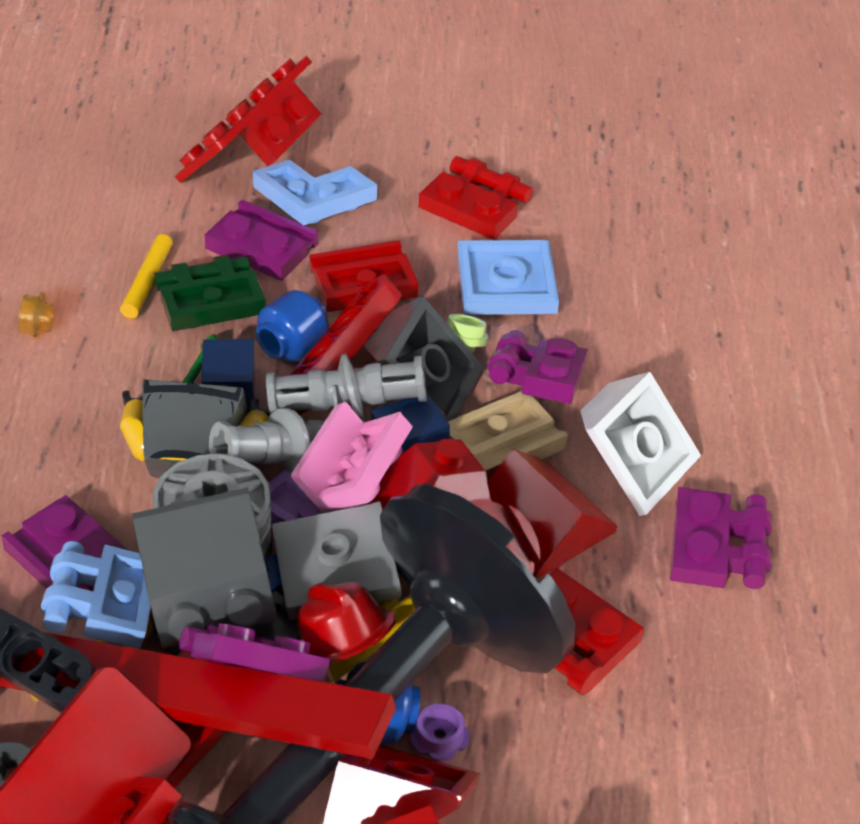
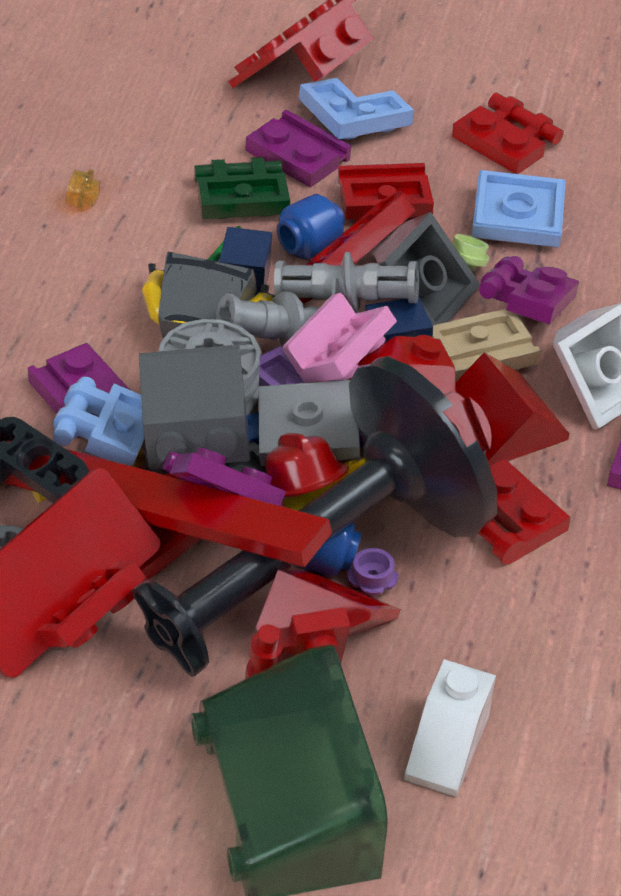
camera: 10 degrees right, 0 degrees up
(145, 277) = (186, 168): yellow piece -> none

